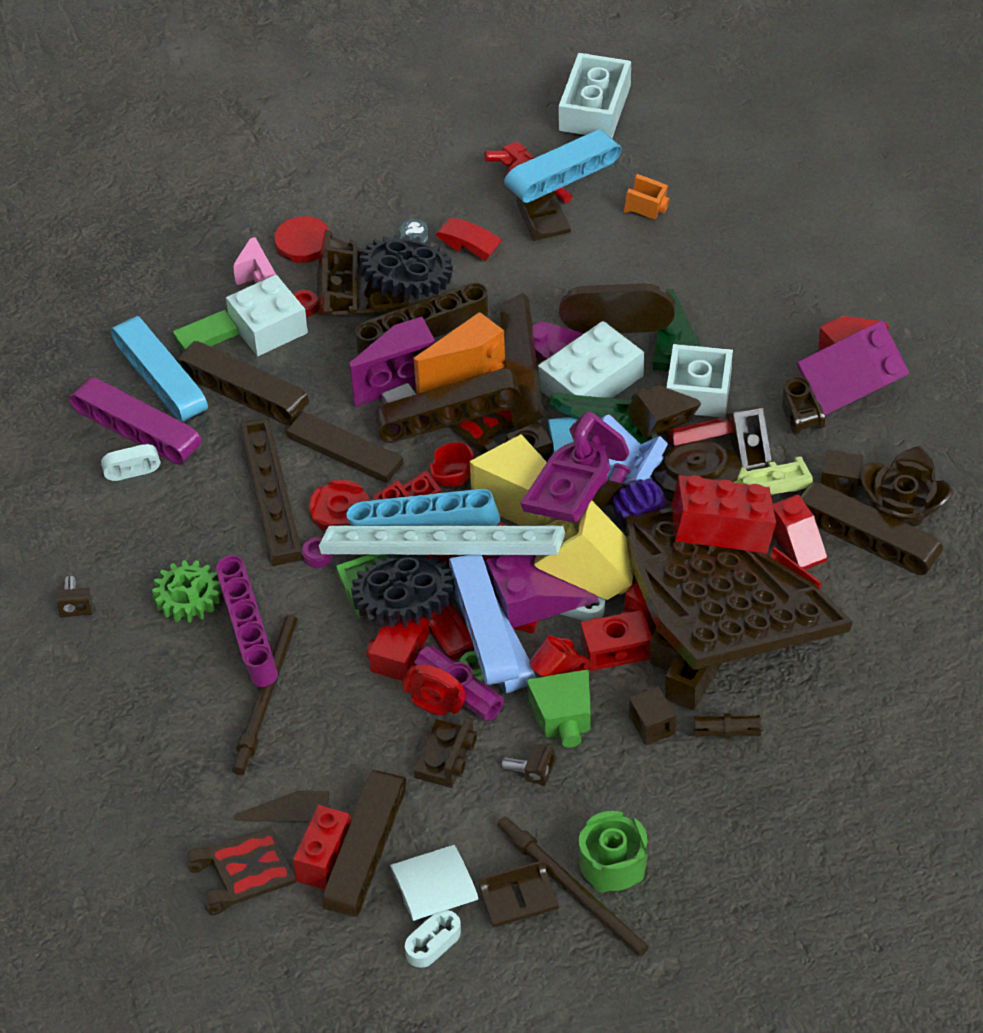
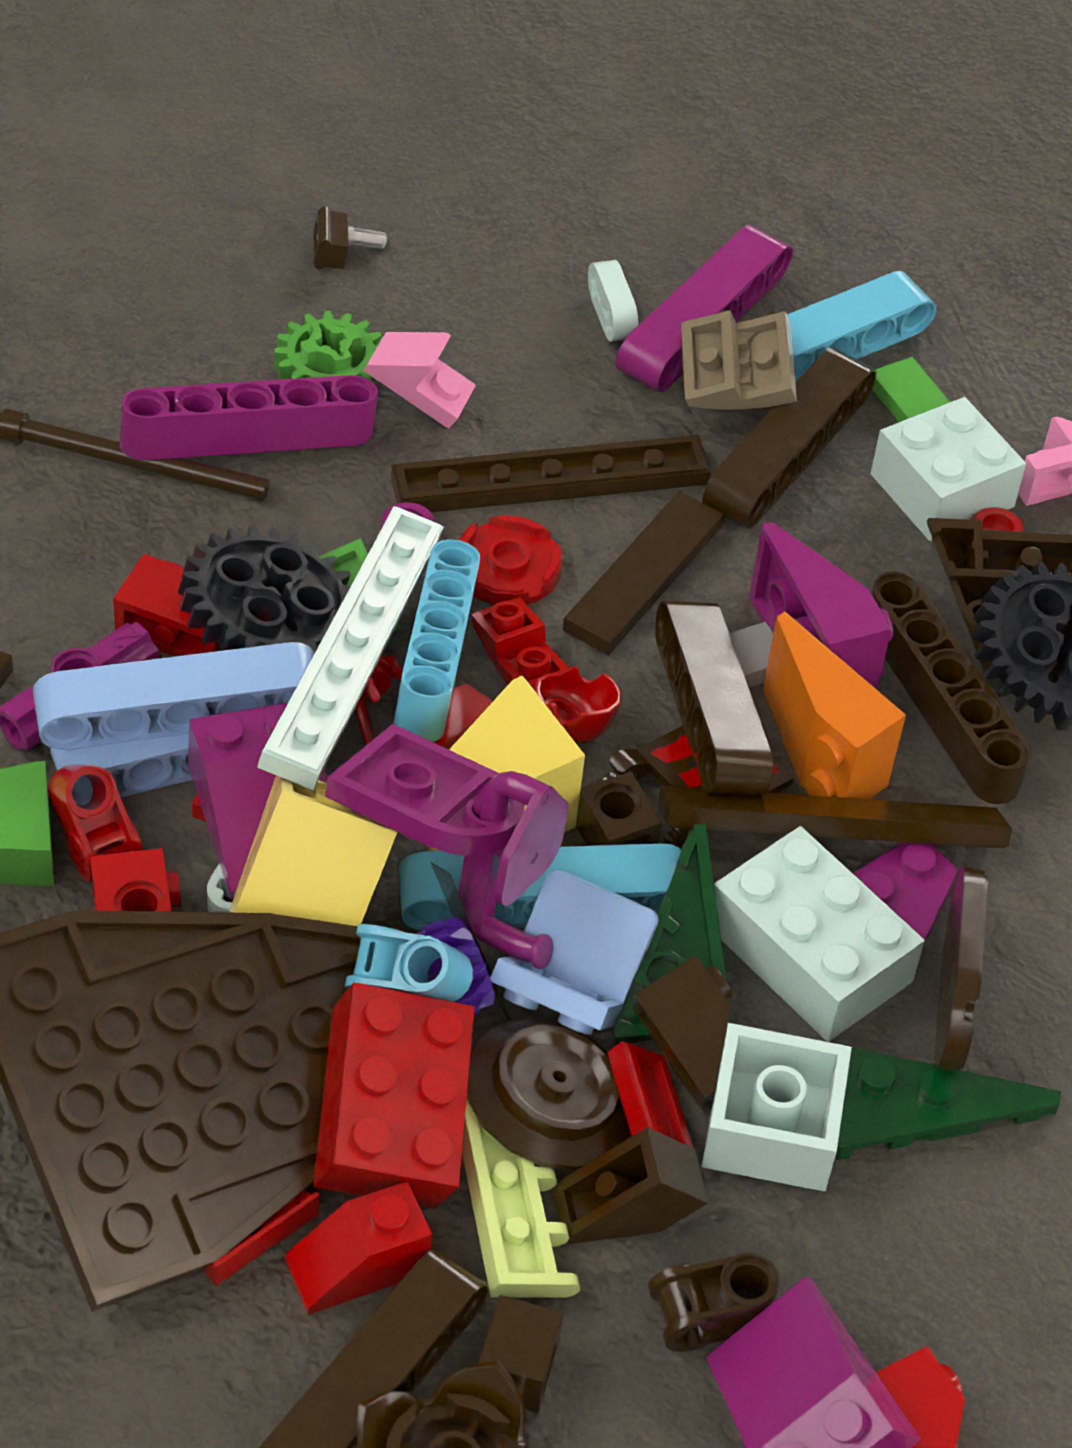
camera: 85 degrees right, 0 degrees up
(198, 393) = (738, 363): none -> dark tan slope
(204, 541) = (412, 369): none -> bright pink slope
(434, 689) = (48, 628): red tile -> none
(659, 505) = (402, 963): none -> medium azure piece

